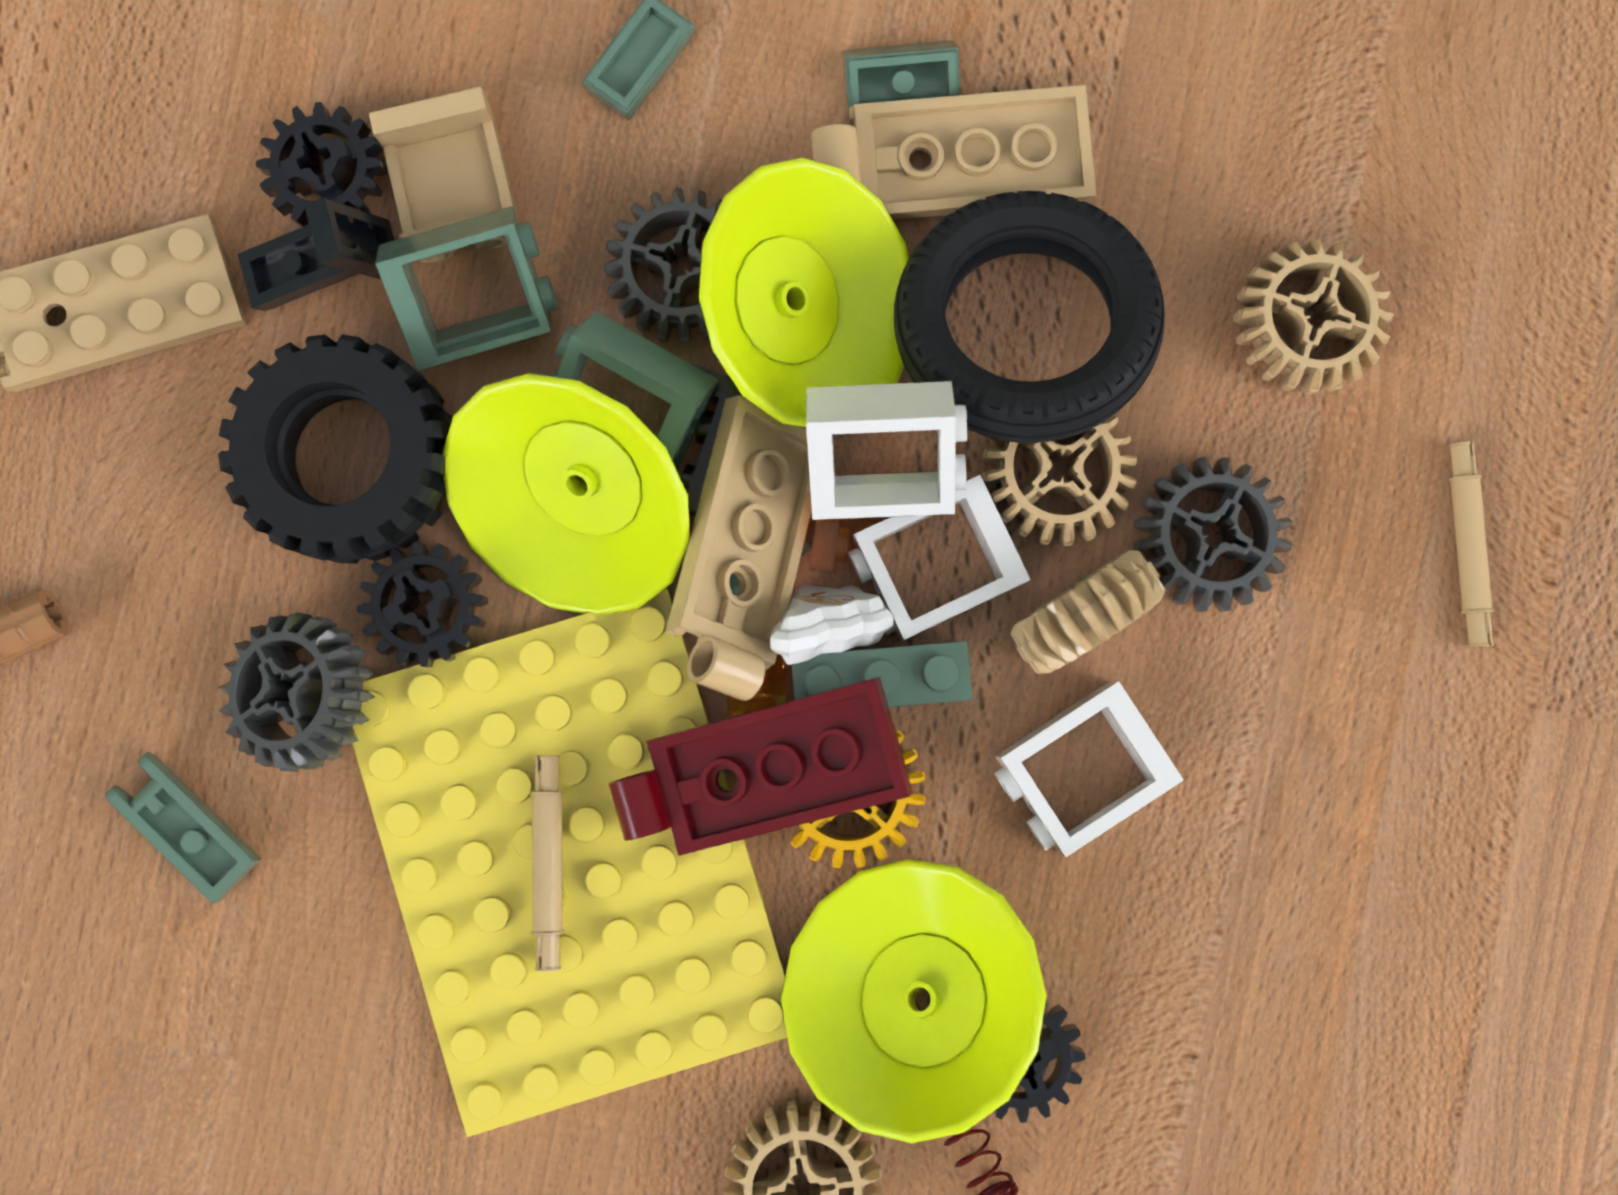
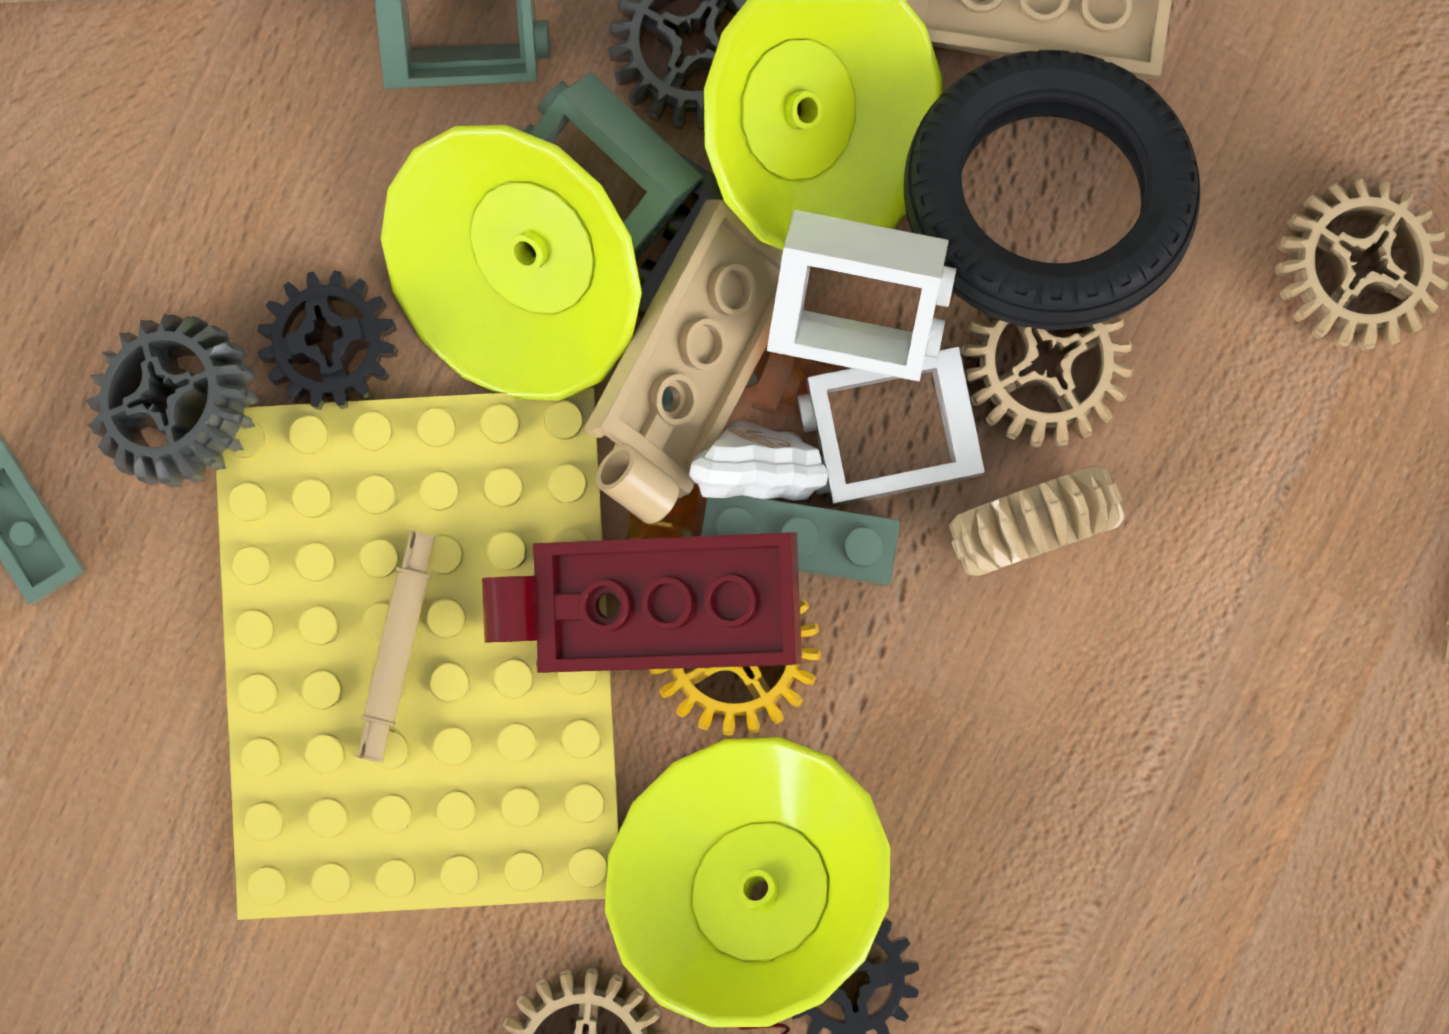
camera: 15 degrees right, 0 degrees up
(272, 419) = (229, 89): black tyre -> none
(1136, 738) = (1057, 670): white window -> none
(1236, 495) = (1216, 491): dark grey gear -> none

